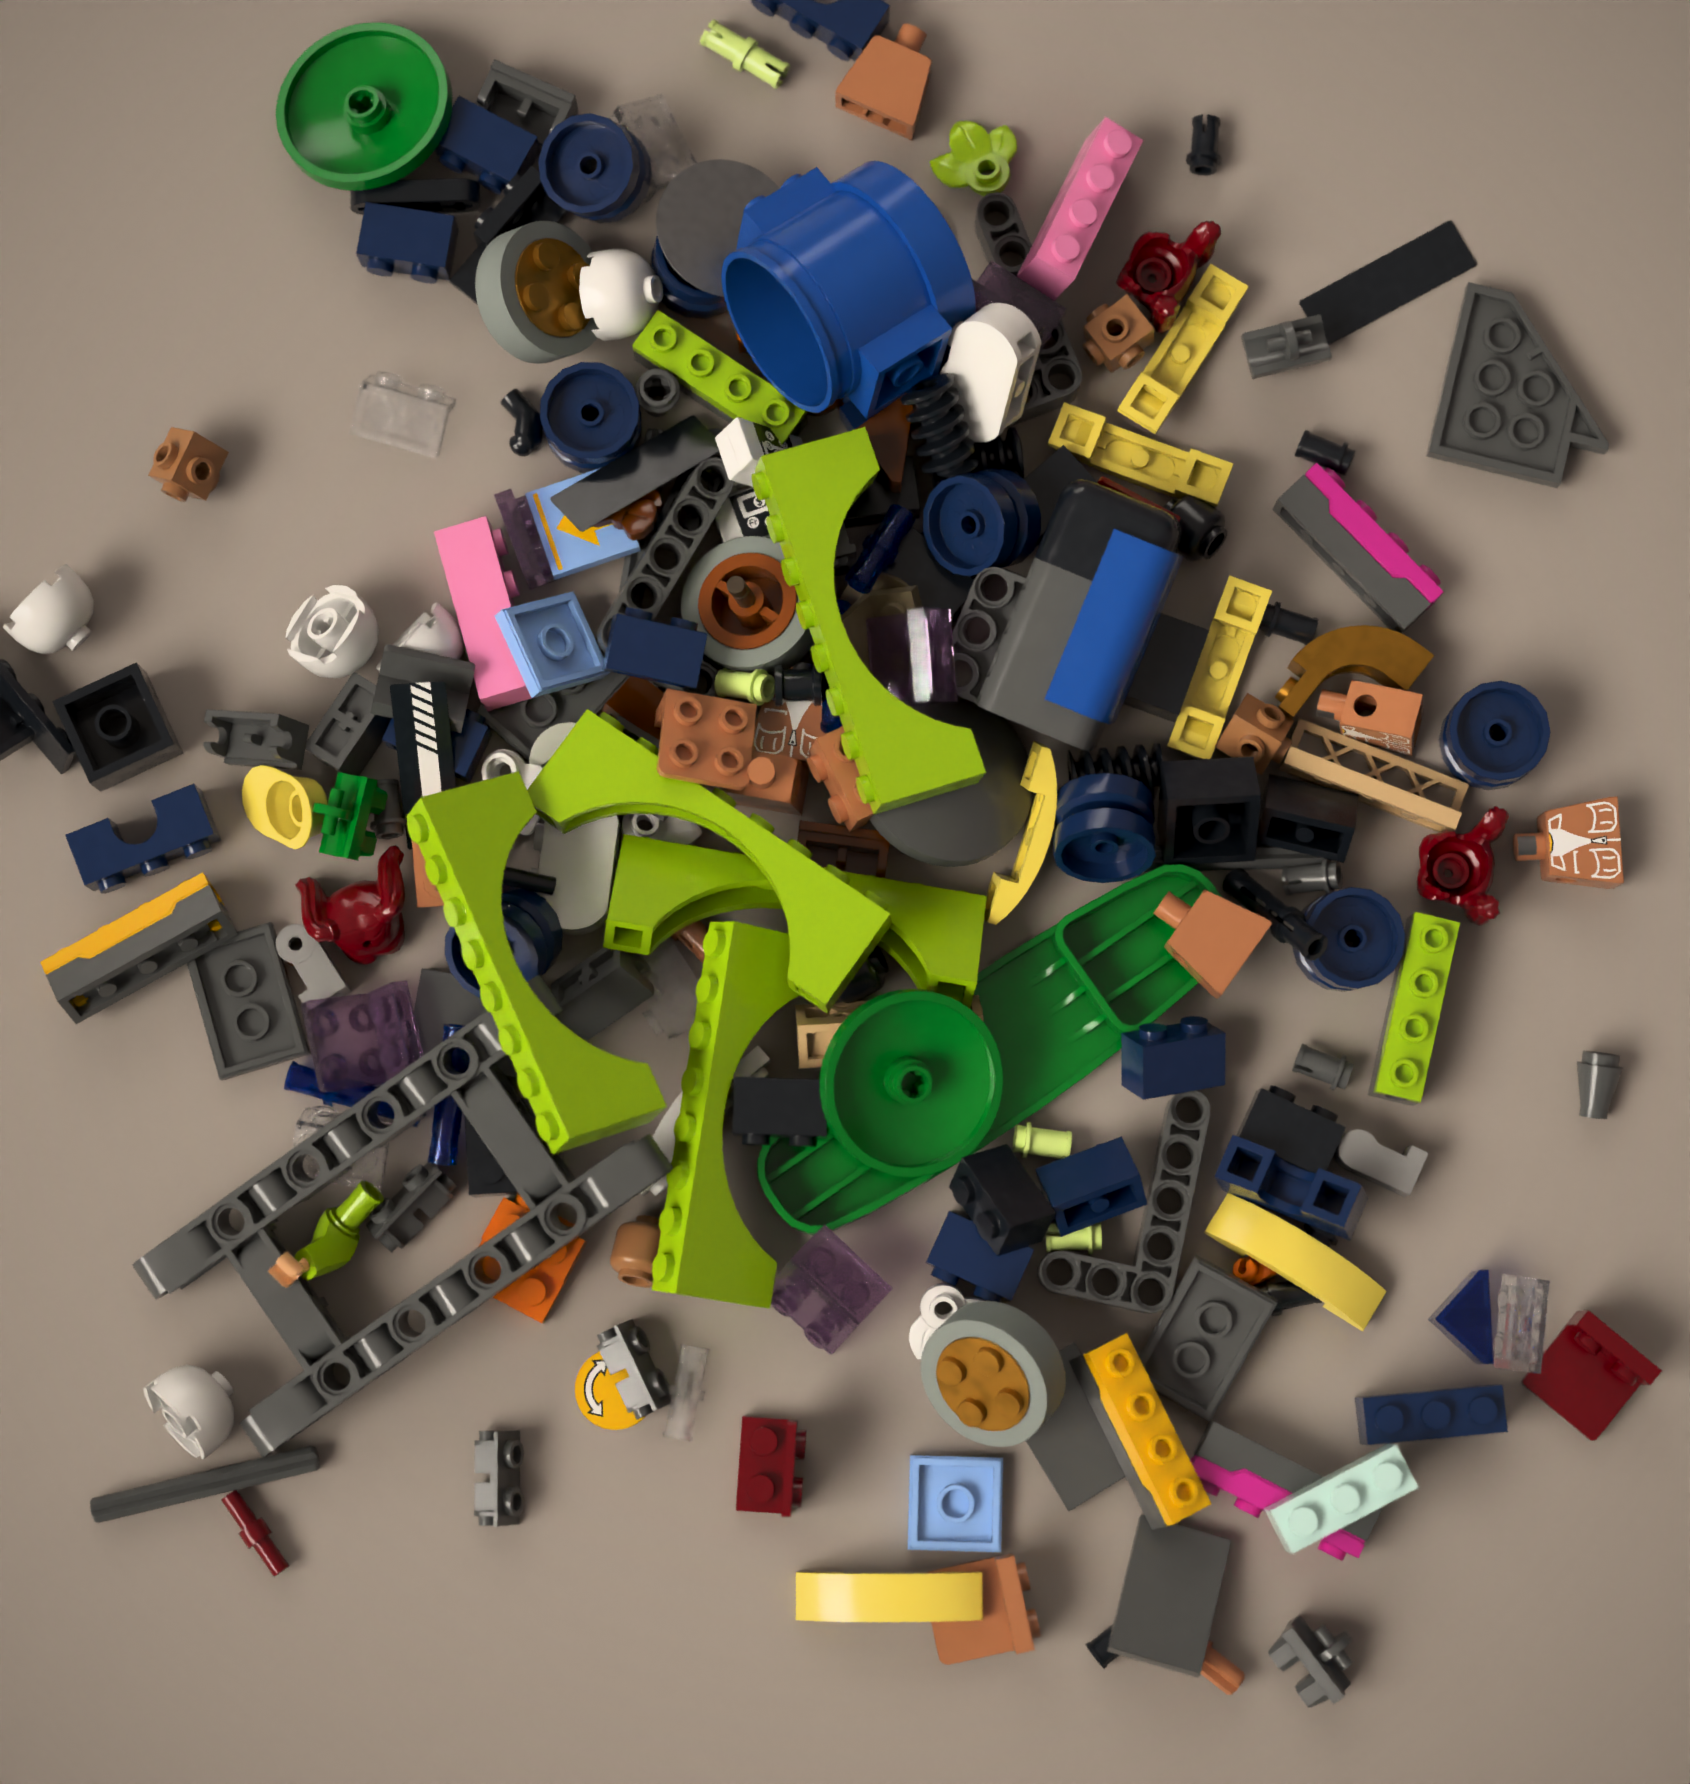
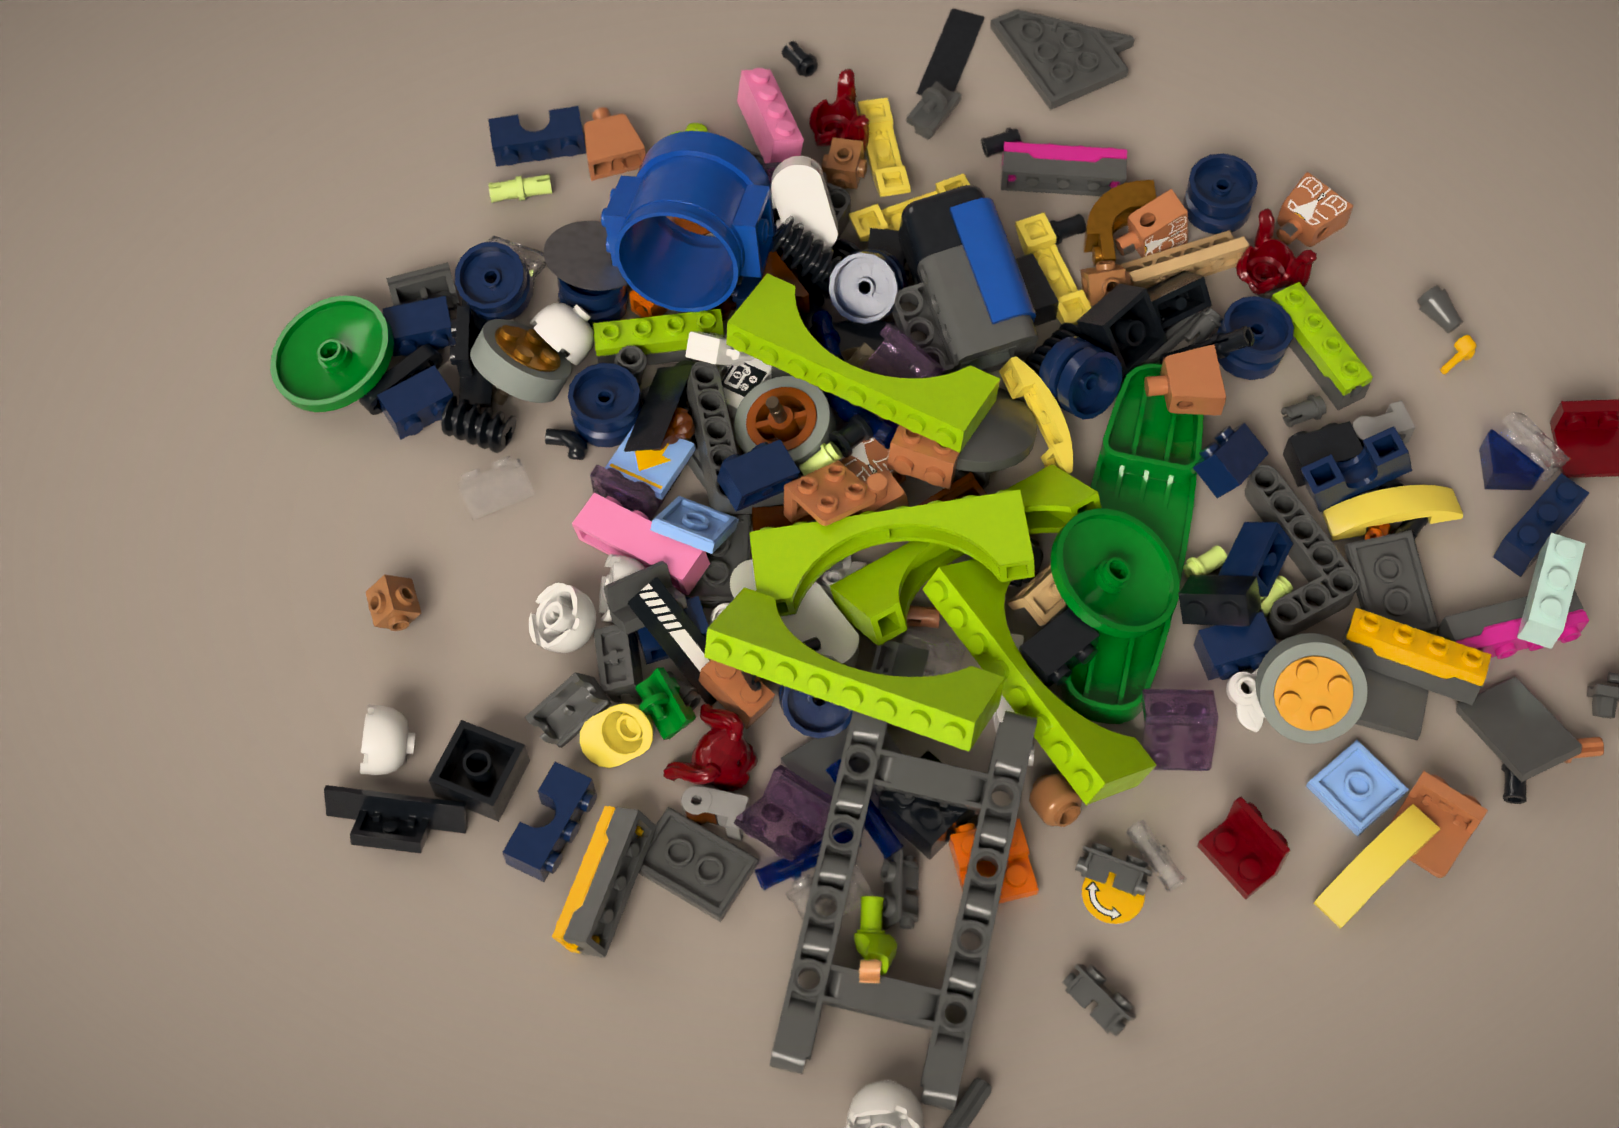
camera: 40 degrees left, 20 degrees down
(441, 326) = (477, 427): none -> black piece
(1577, 1151) = (1466, 350): none -> yellow hand

